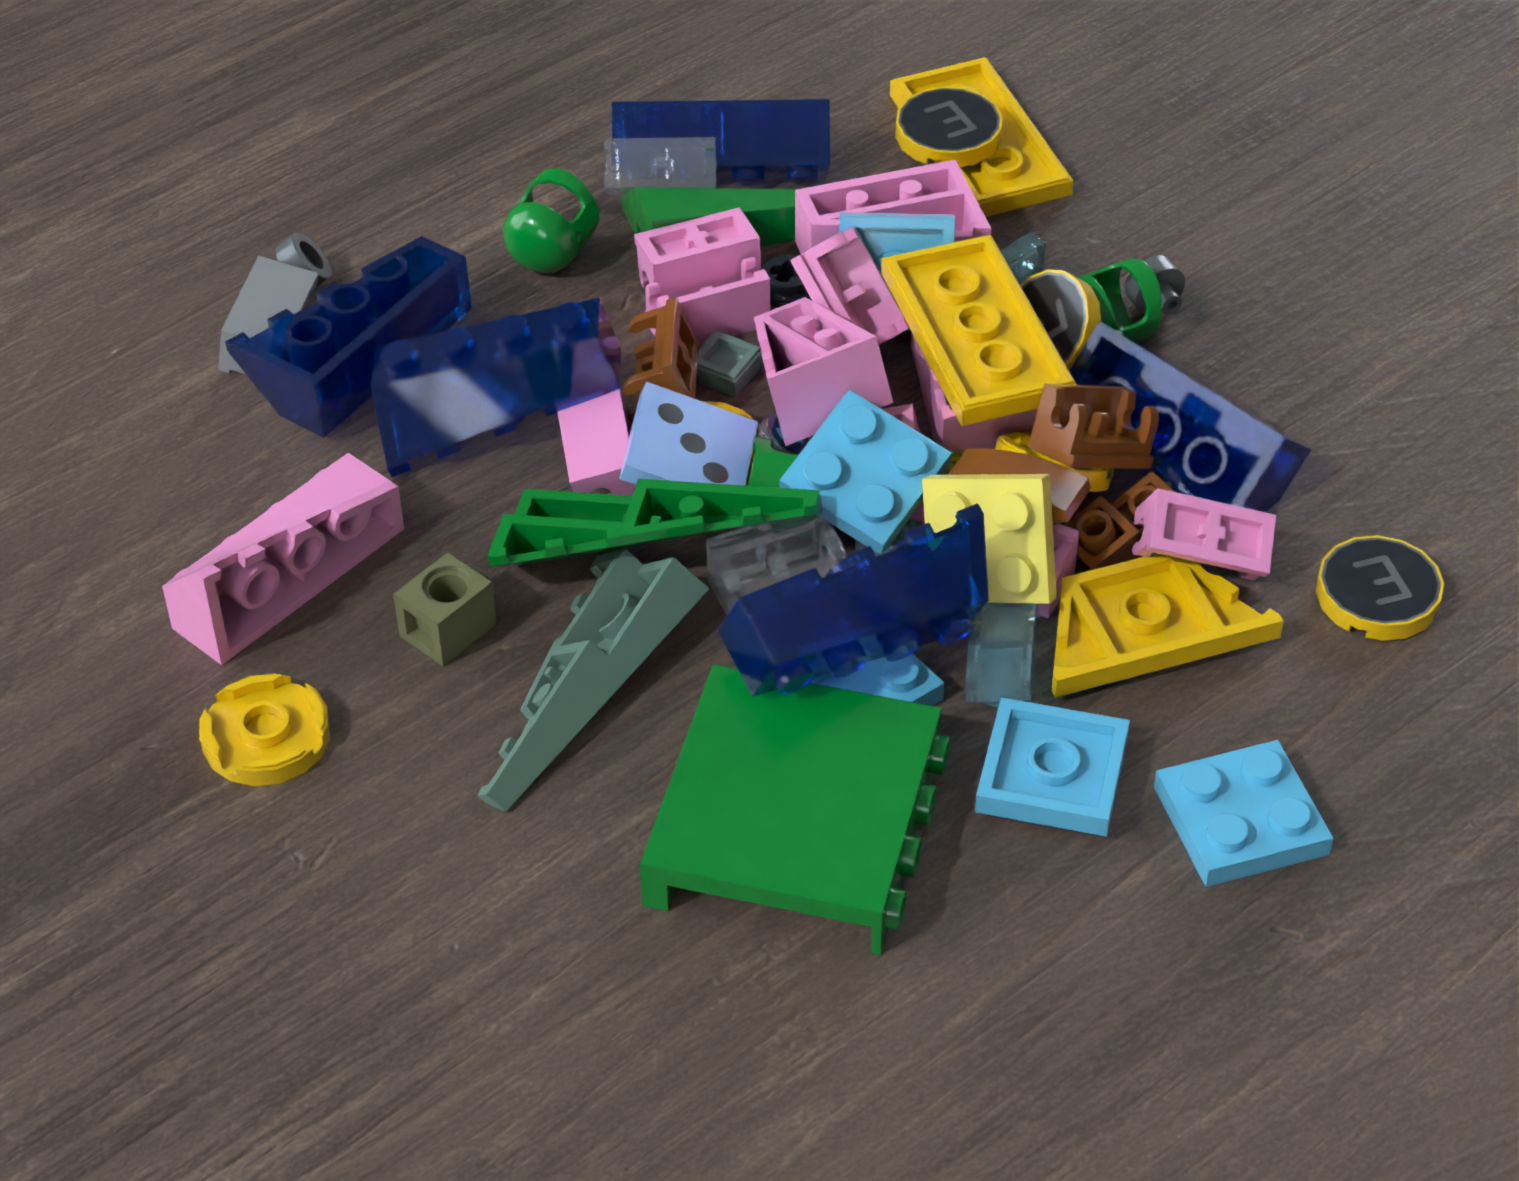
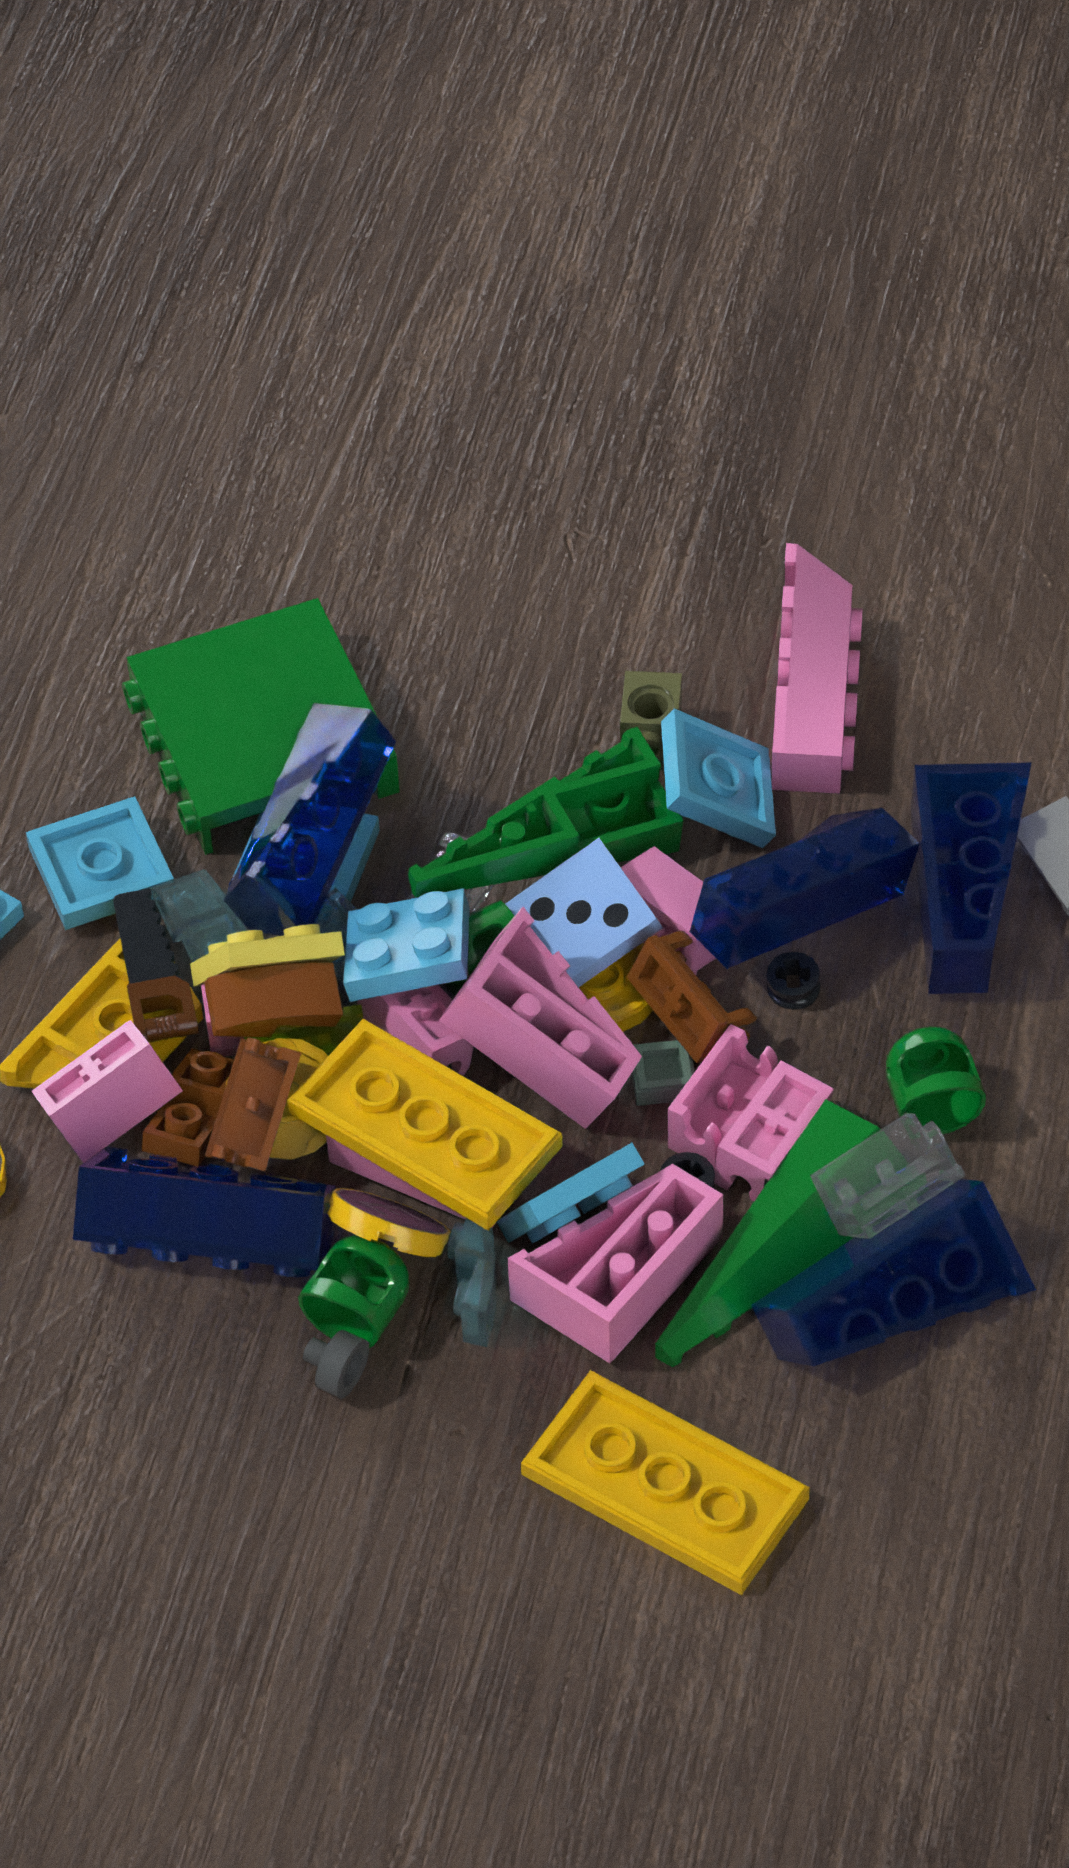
camera: 145 degrees right, 5 degrees up
(264, 730) = (694, 587): yellow tile -> none
(459, 508) = (718, 778): none -> medium azure plate
(602, 646) = (506, 735): sand green wedge -> none
(848, 283) = (596, 1120): bright pink hinge -> none
(949, 126) = (684, 1432): tile -> none
(1089, 613) = (152, 971): none -> piece

